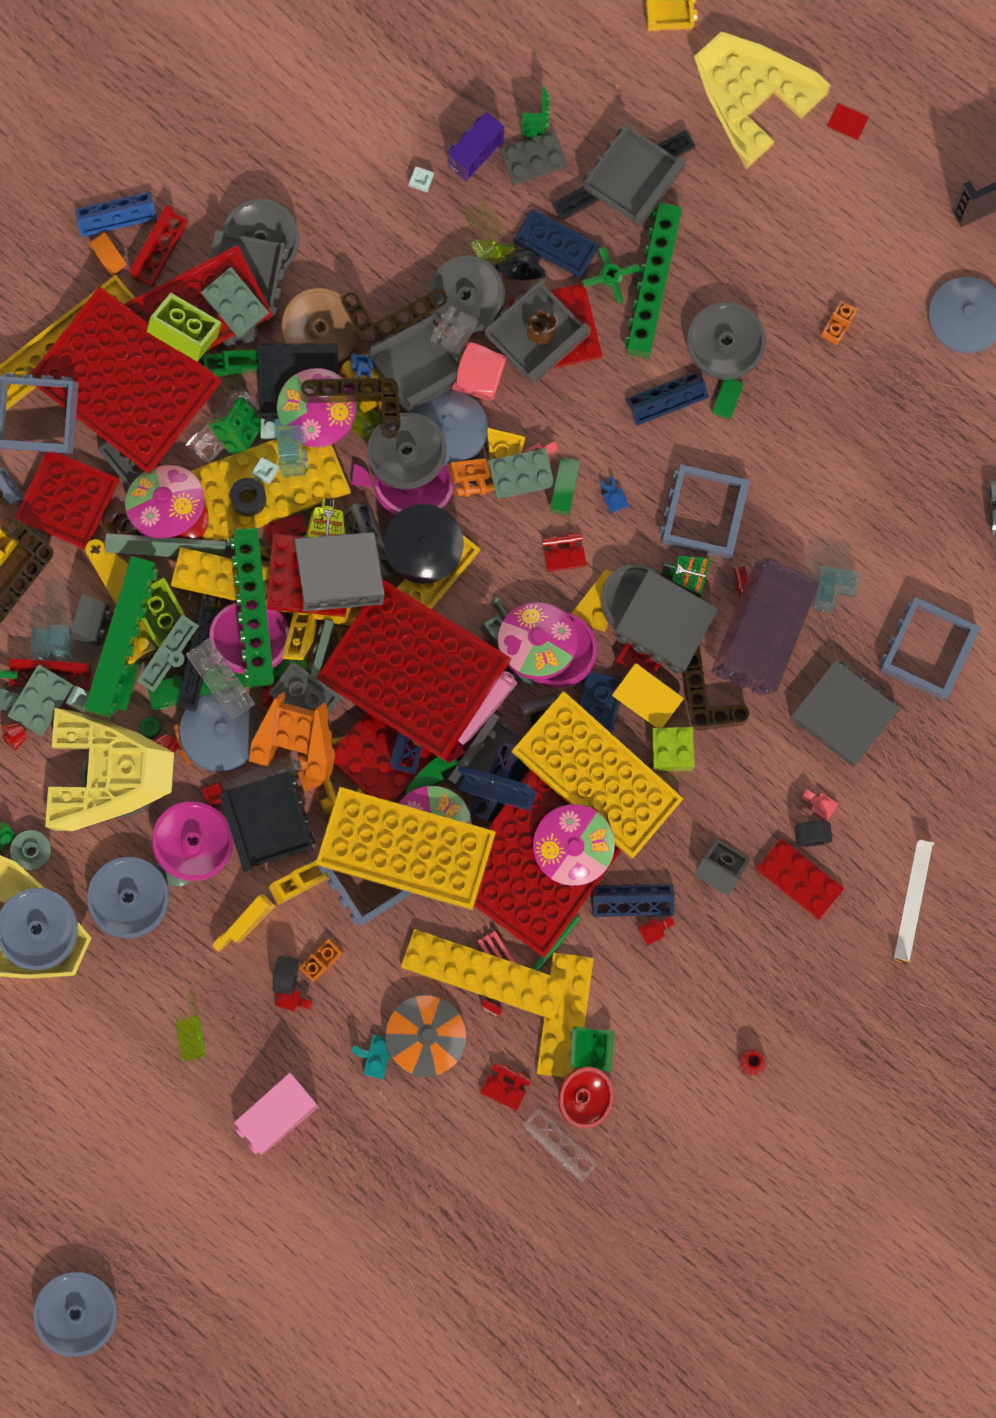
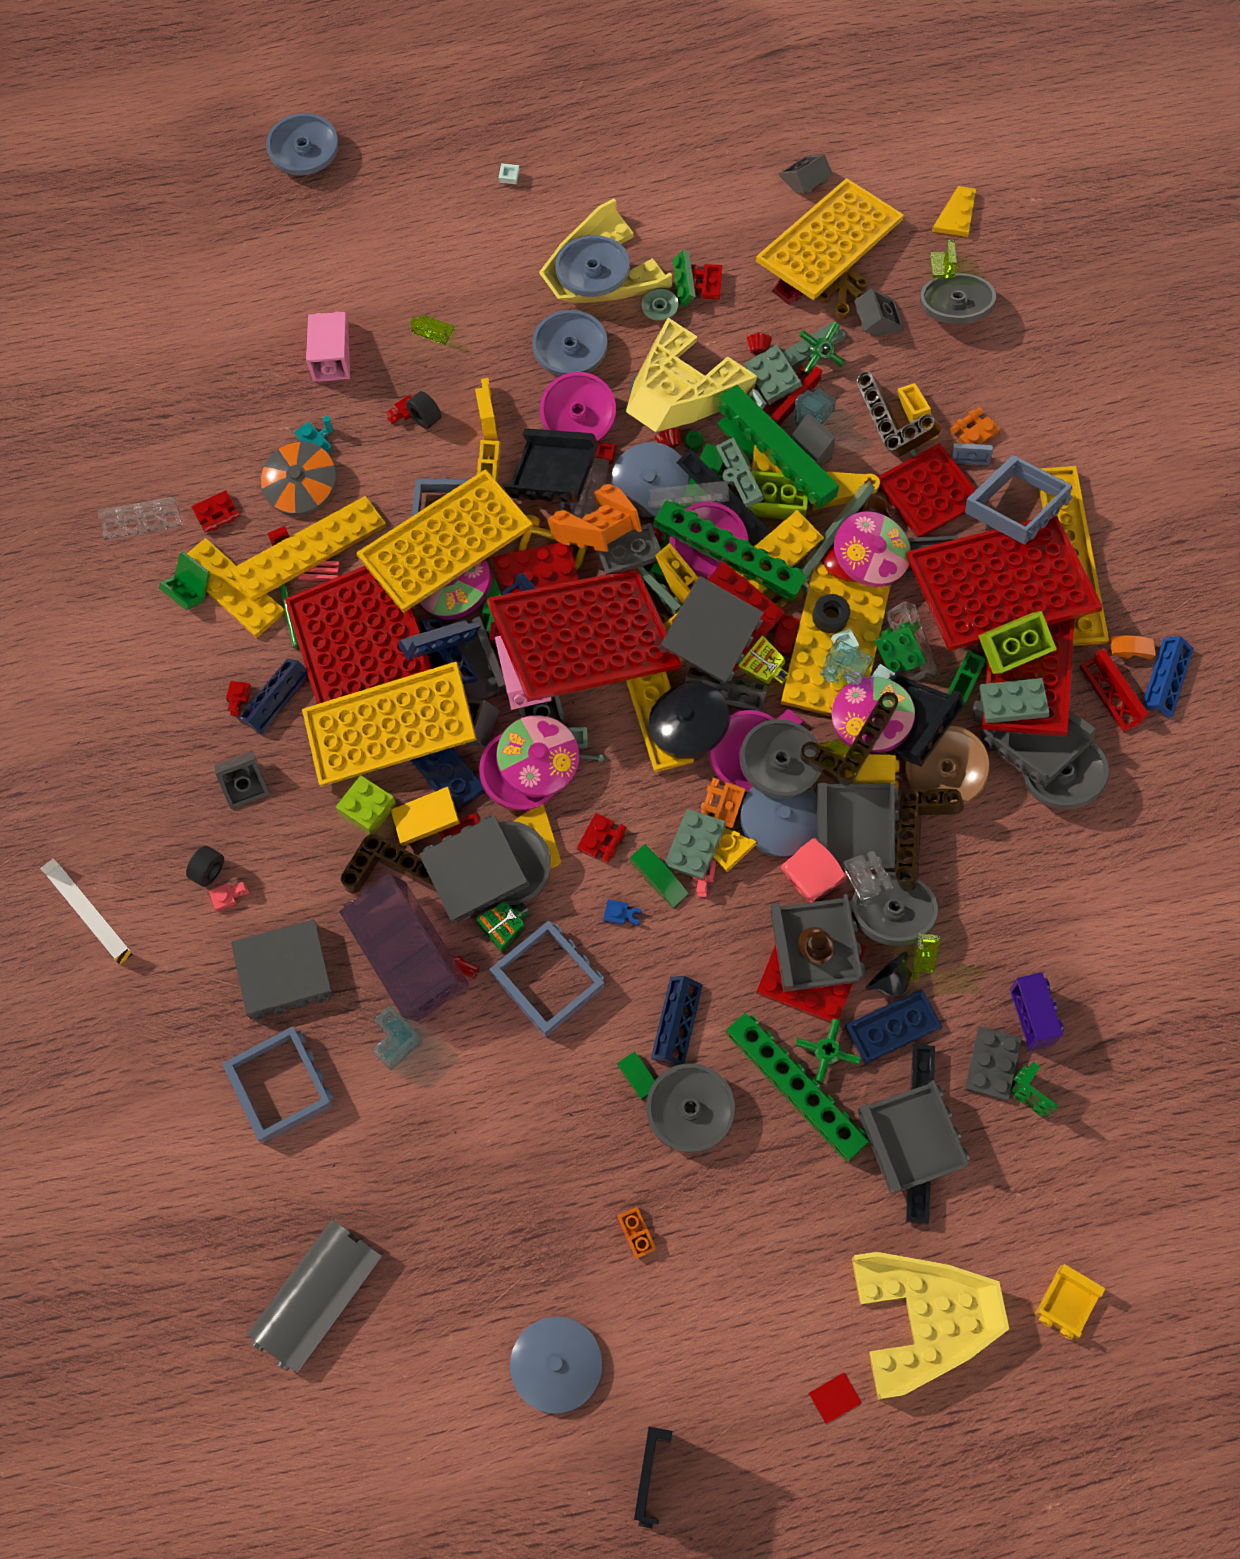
camera: 130 degrees right, 10 degrees down
(321, 960) = (417, 447): orange slope -> none
(362, 365) = (883, 767): blue plate -> none
(421, 179) = (1036, 947): light aqua plate -> none
(573, 844) = (347, 668): dish -> none
(595, 1097) = (154, 554): red dish -> none
(760, 1062) = (76, 697): red piece -> none
(799, 879) = (182, 835): red plate -> none

